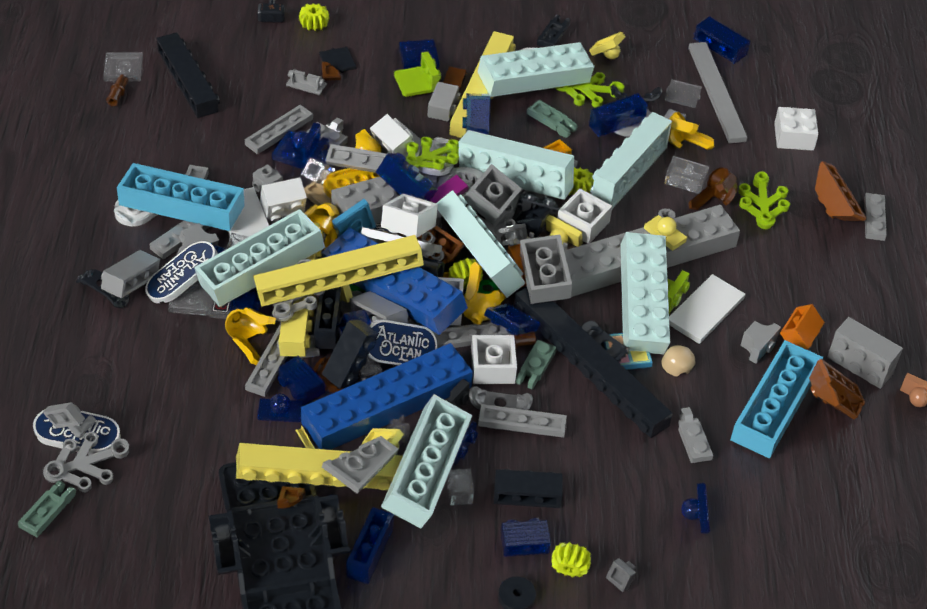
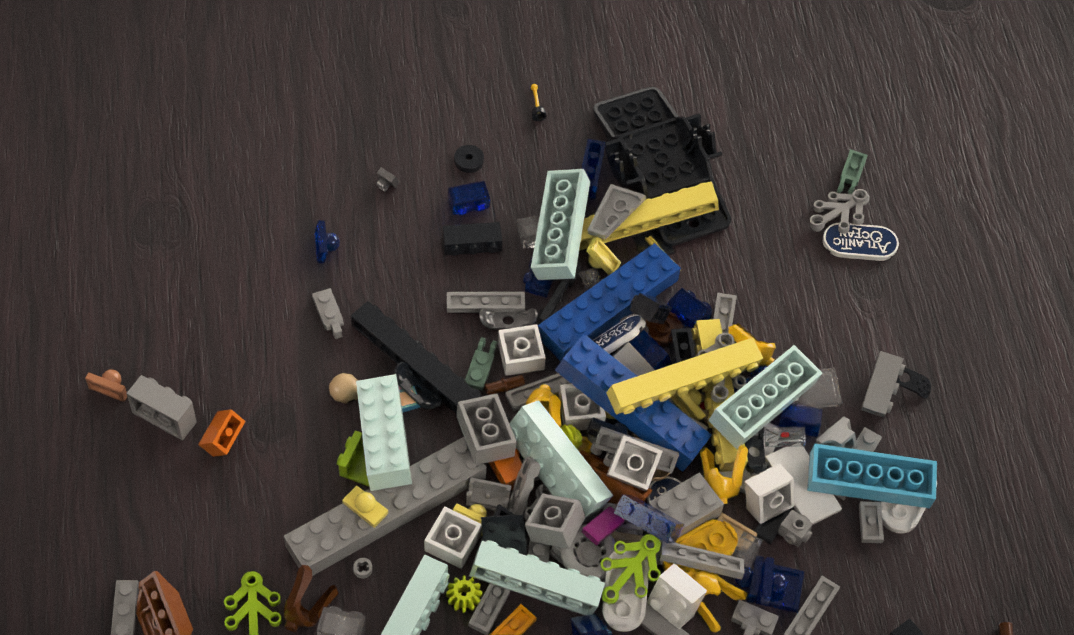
camera: 170 degrees right, 10 degrees up
(69, 416) = (872, 226): light grey plate -> none
(178, 273) = (836, 396): tile -> none
(280, 409) = (700, 283): clear blue tile -> none
(290, 496) = (666, 187): reddish brown tile -> none
(355, 218) = (690, 467): dark azure tile -> none
(511, 319) = (511, 386): clear blue plate -> none
(571, 559) = (429, 178): neon yellow gear -> none
(705, 308) = (316, 455): white tile -> none
(760, 339) = (264, 419): light grey brick -> none
(775, 400) = (251, 350): medium azure brick -> none
(836, 389) = (193, 358): dark orange wedge -> none

